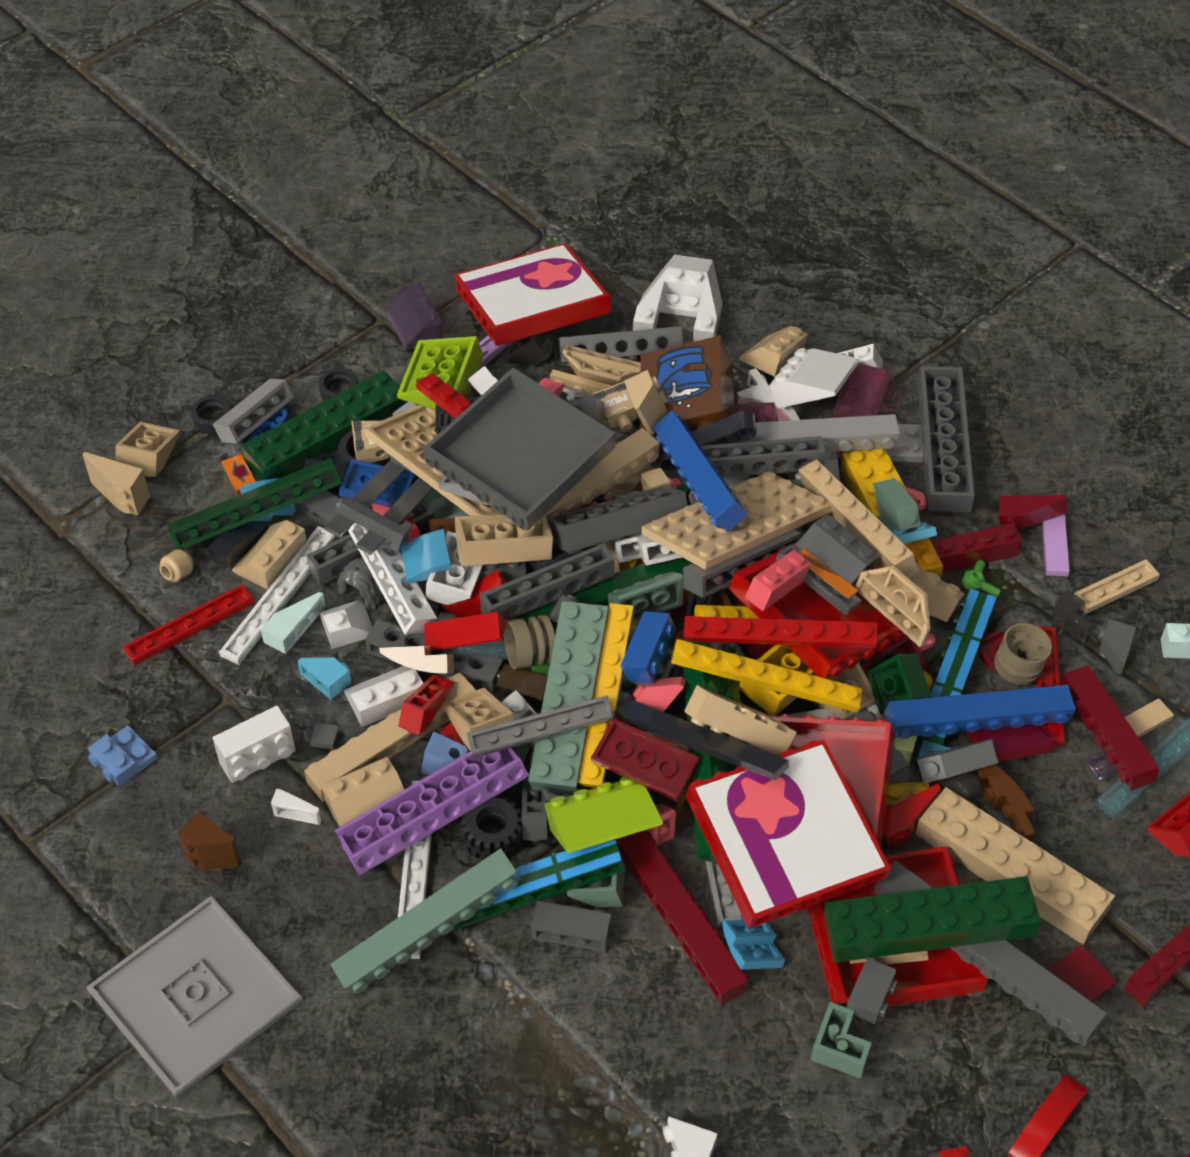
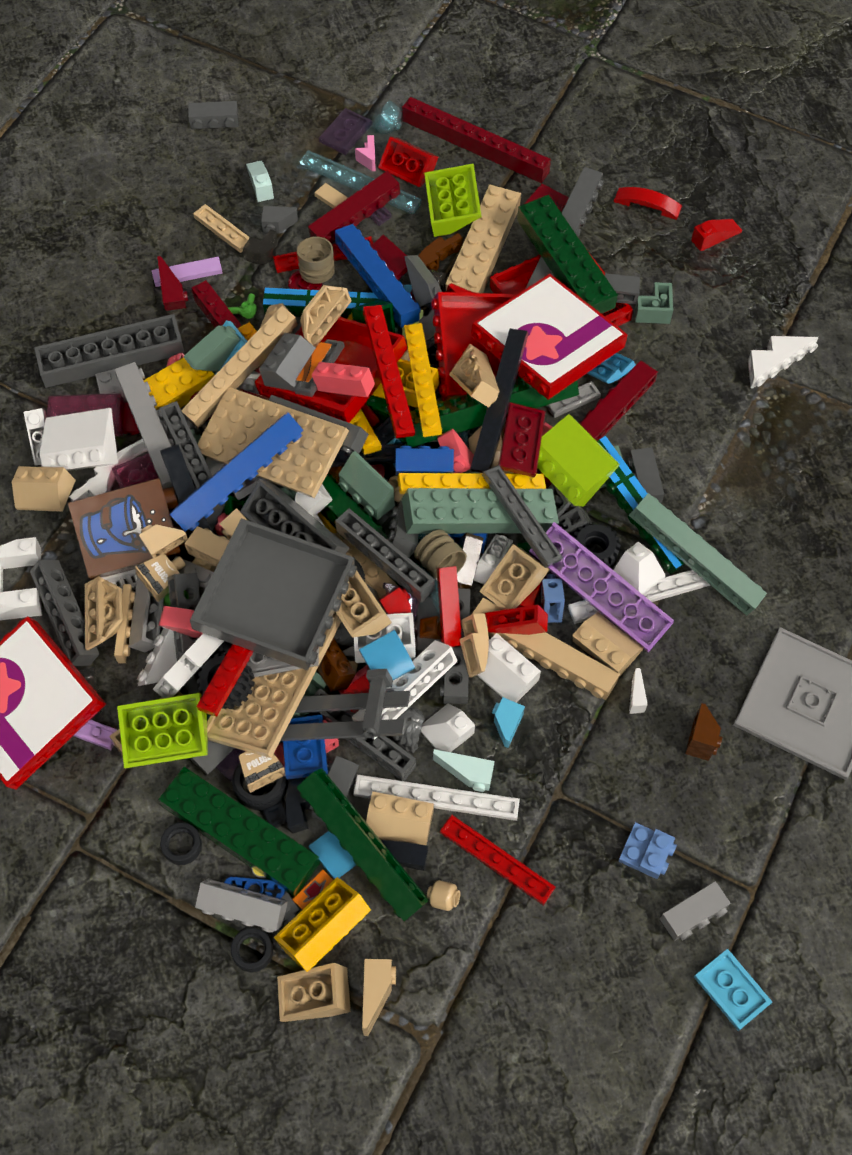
camera: 110 degrees left, 10 degrees up
(35, 771) = (695, 912): none -> light grey brick
(200, 460) = (322, 924): none -> yellow brick
(254, 744) = (601, 739): white brick -> none
(324, 736) = (561, 701): dark grey tile -> none
(413, 316) = (69, 809): clear purple slope -> none
(440, 864) = (640, 568): none -> white slope
(1099, 838) = (452, 198): none -> lime slope

